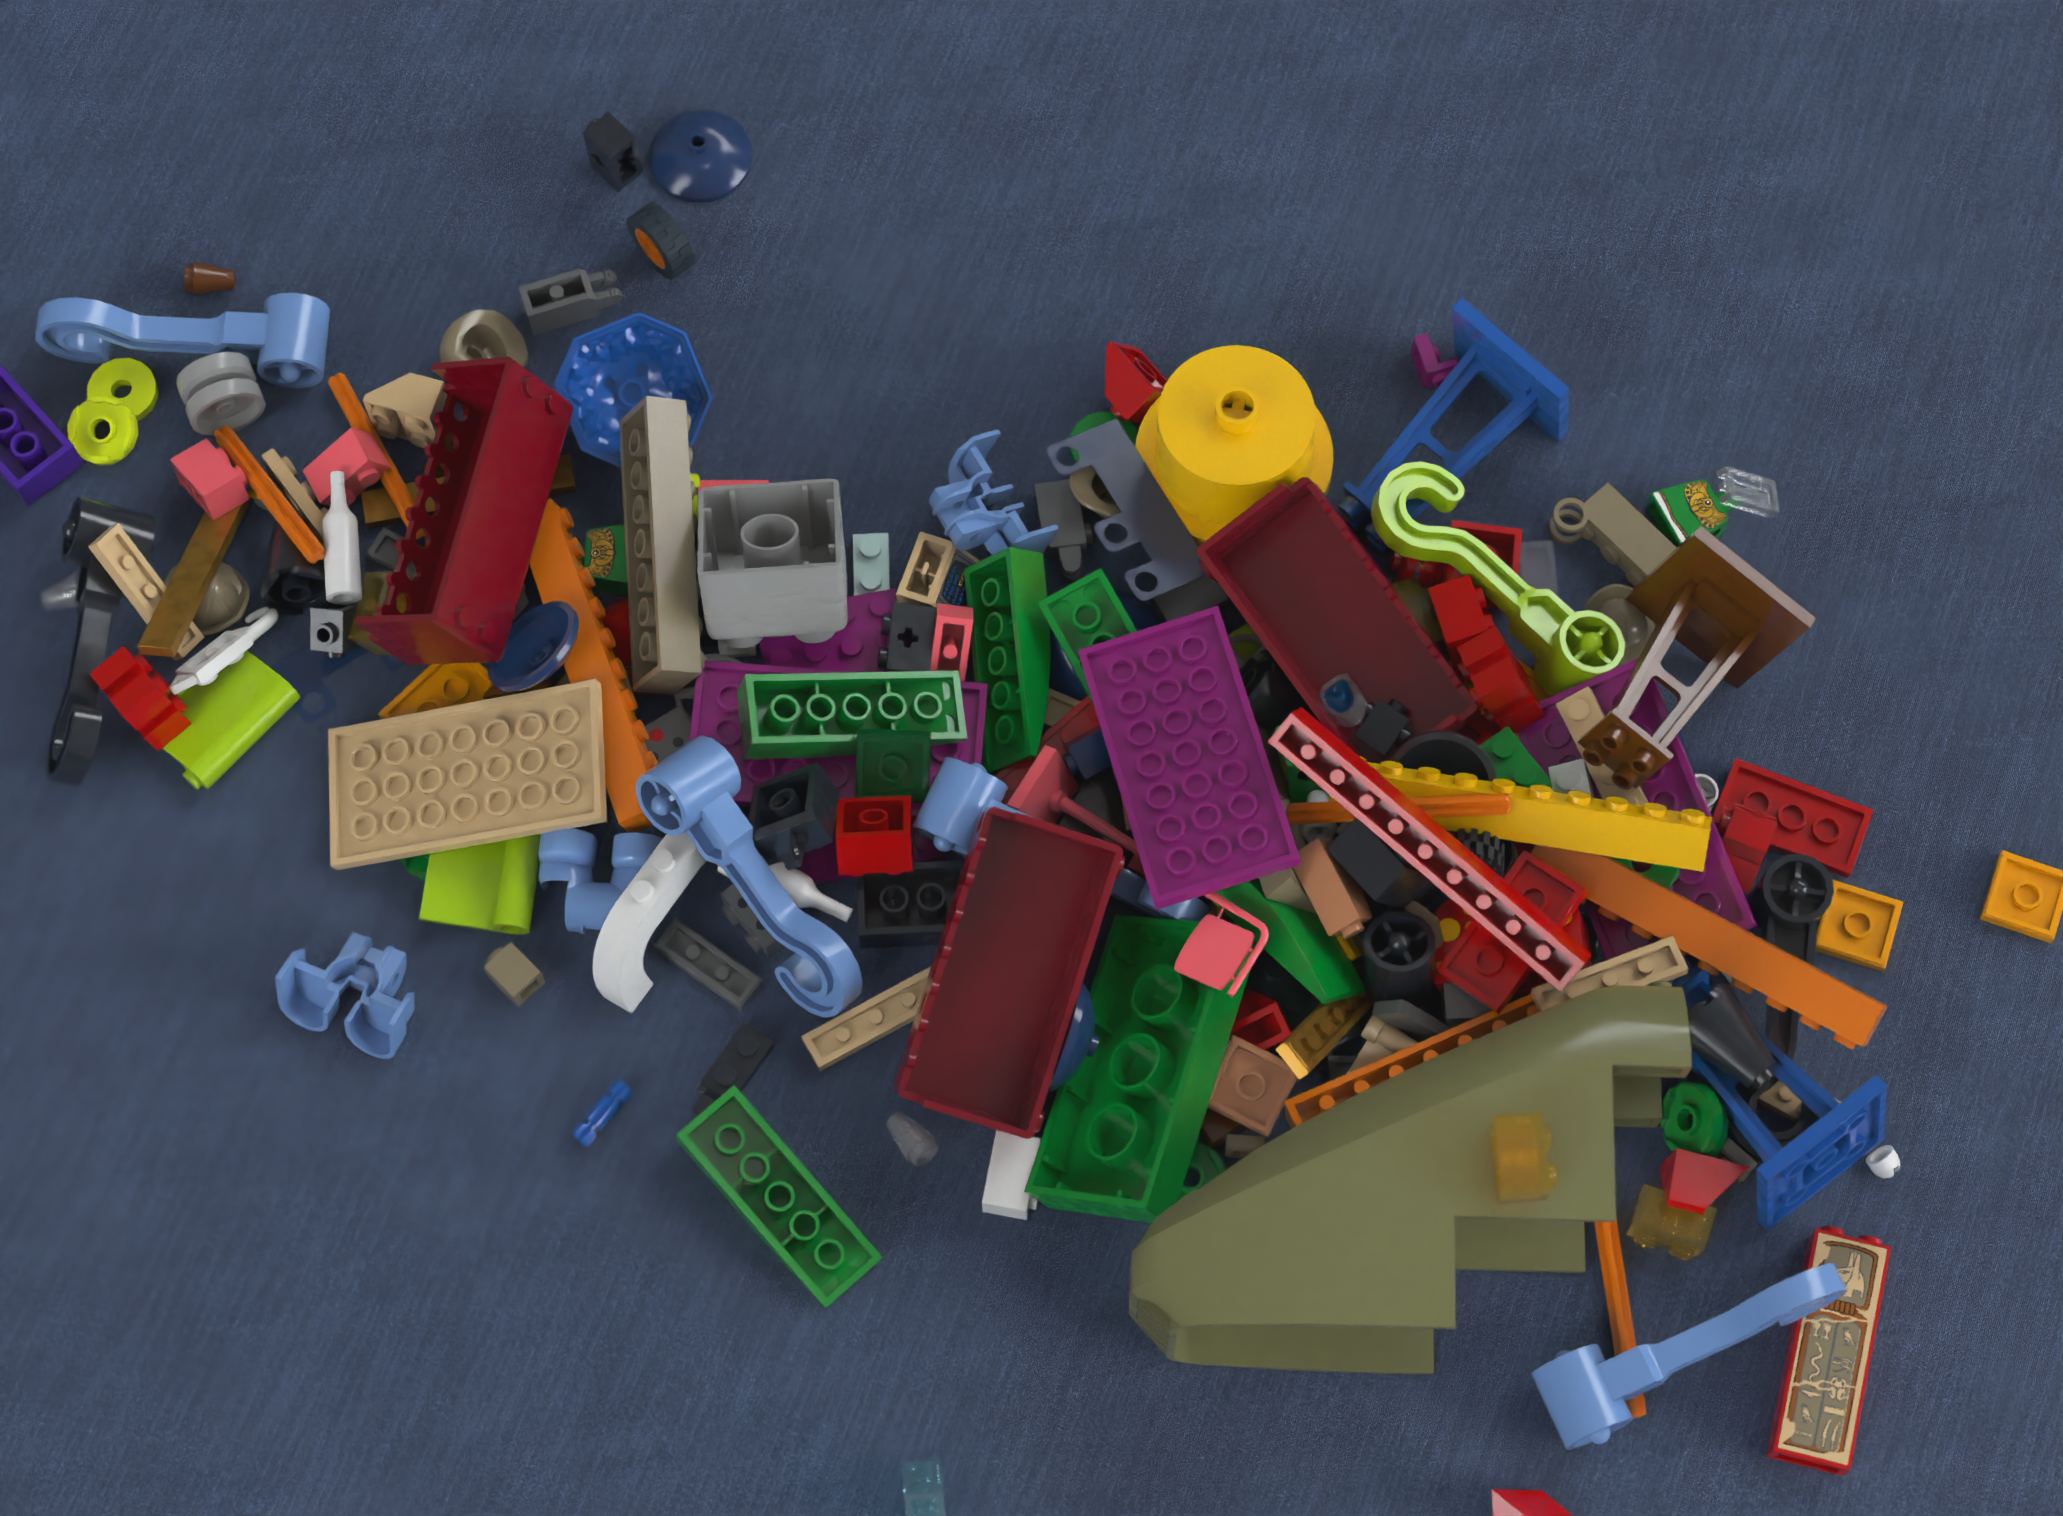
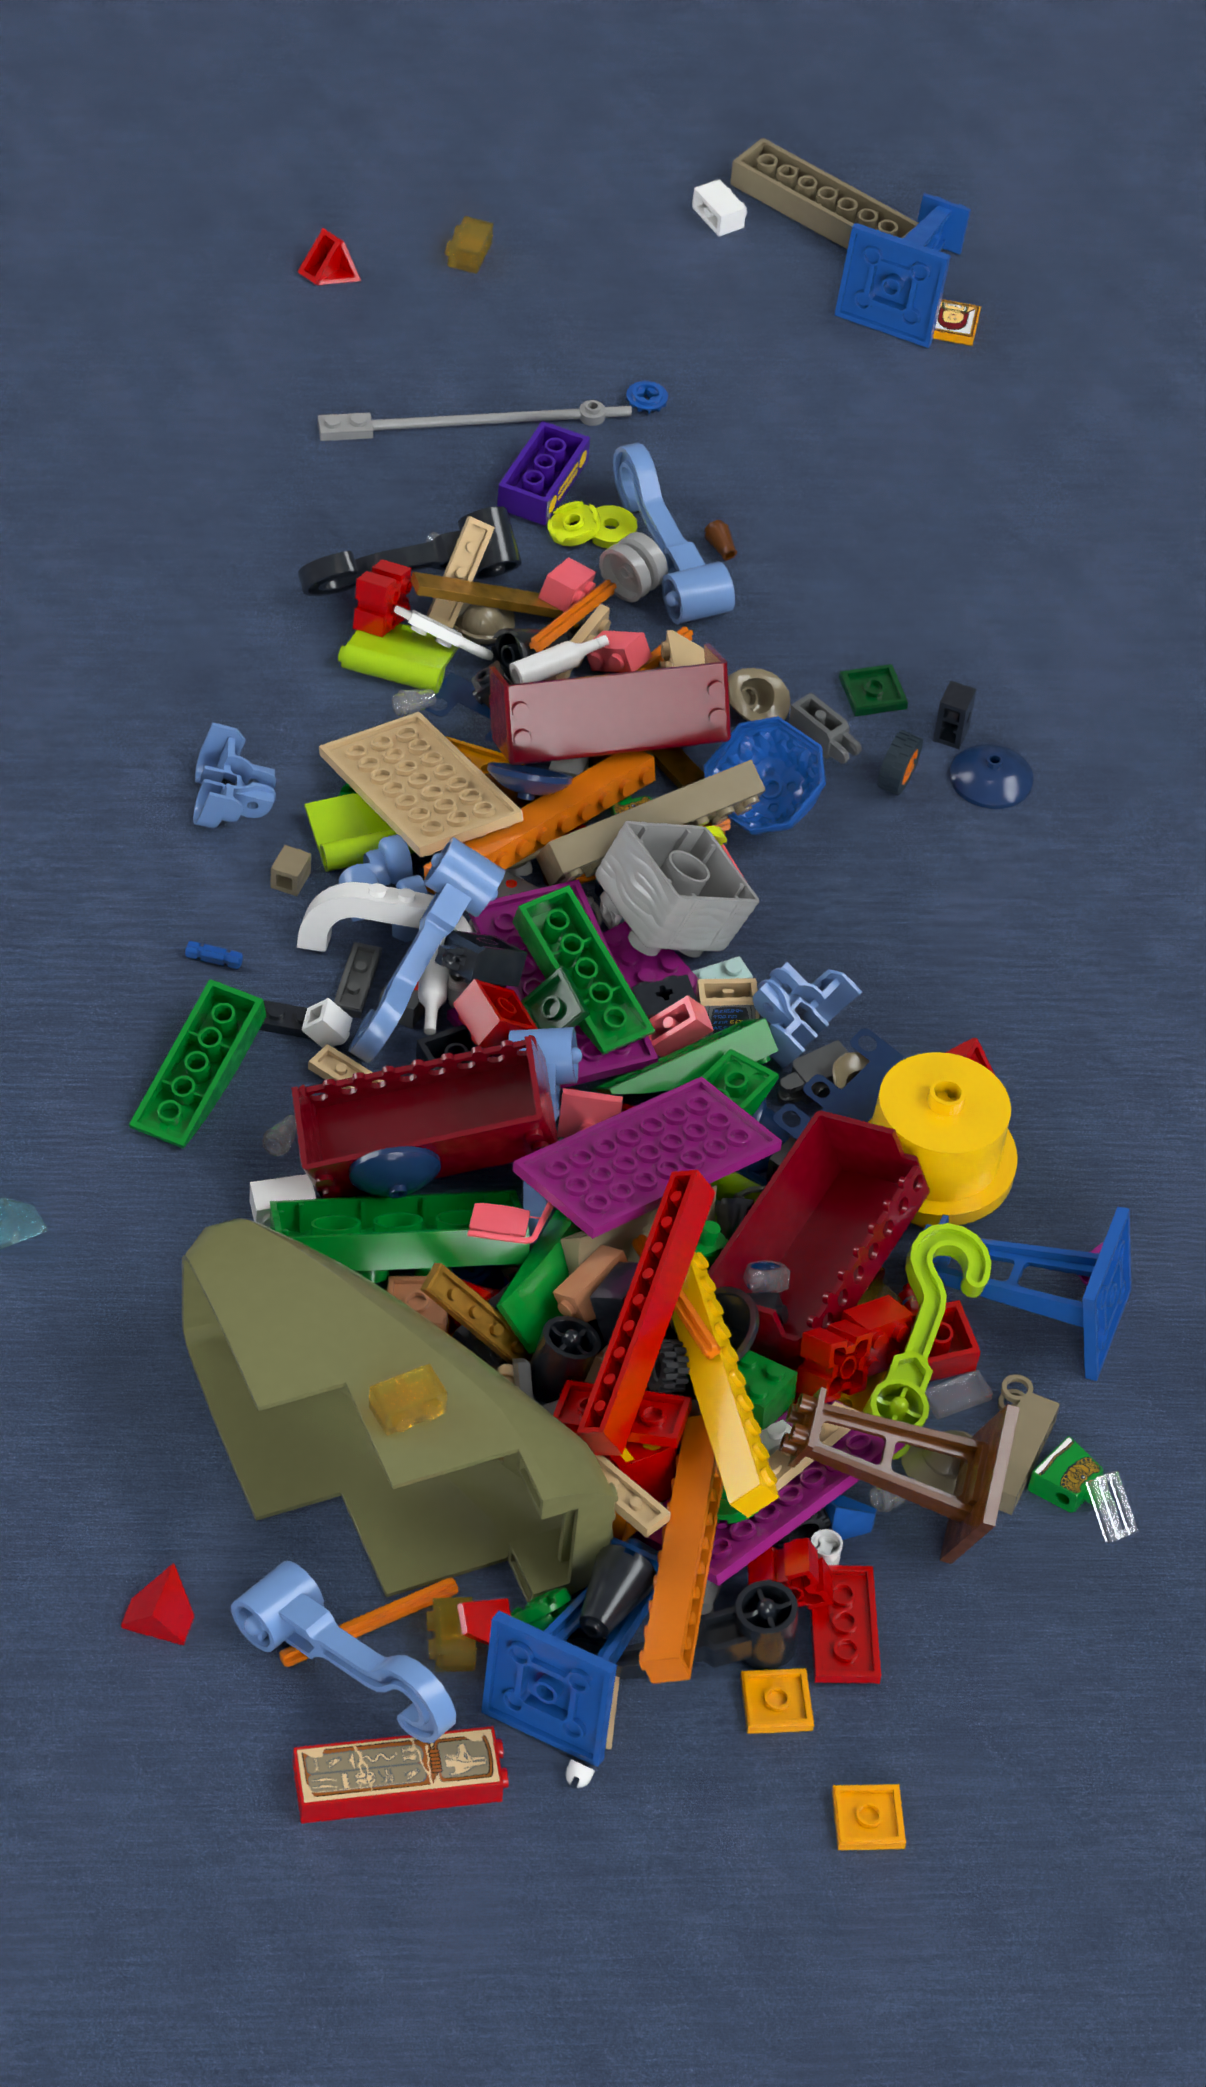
camera: 60 degrees right, 20 degrees down
(305, 730) = (412, 701): none -> clear cone
(516, 219) = (873, 690): none -> dark green tile
(776, 1025) = (327, 1023): none -> white brick

